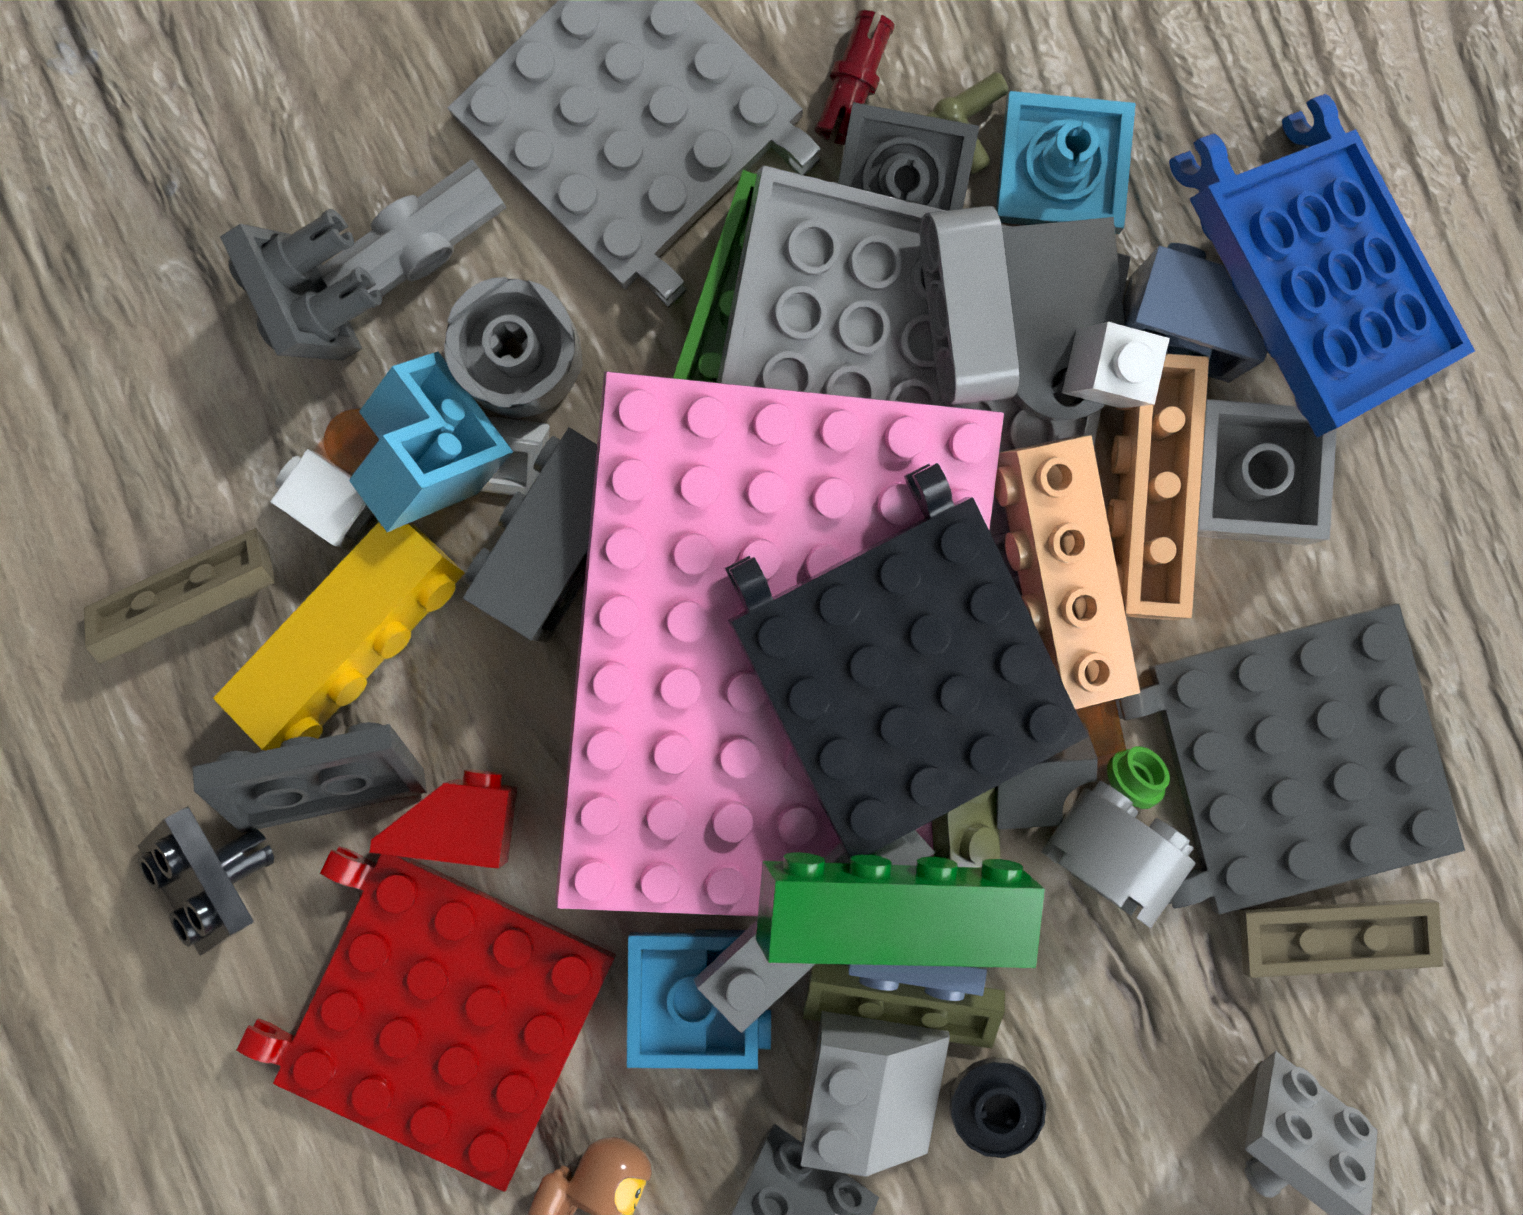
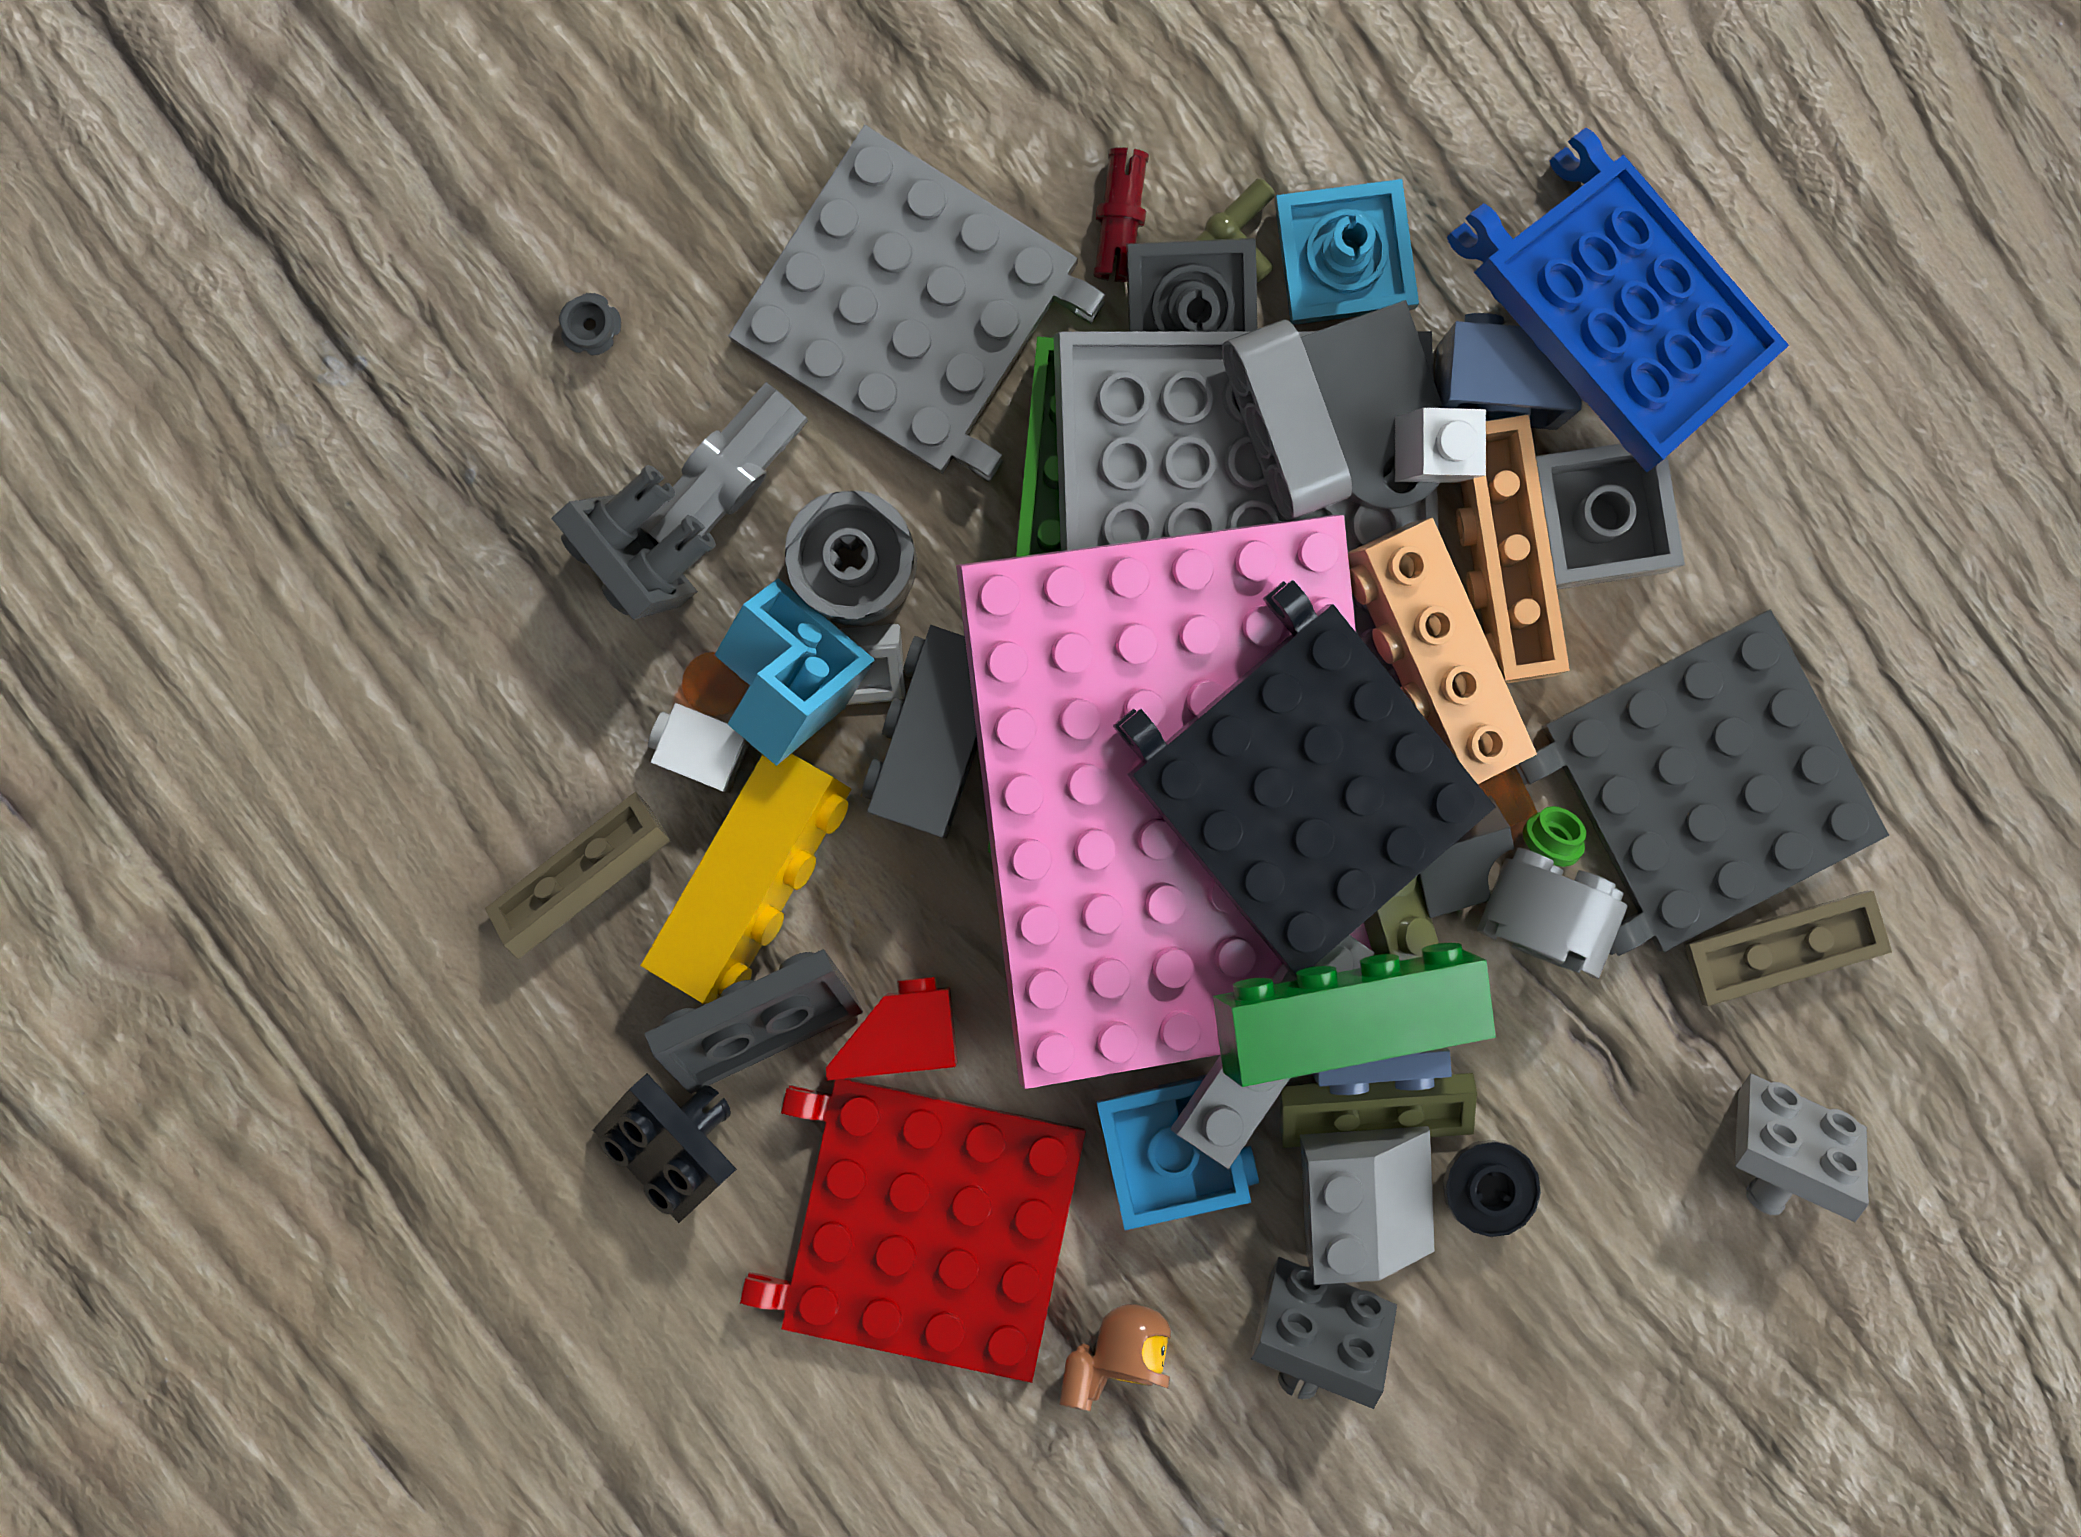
camera: 15 degrees left, 0 degrees up
(305, 55) = (580, 310): none -> dark grey plate

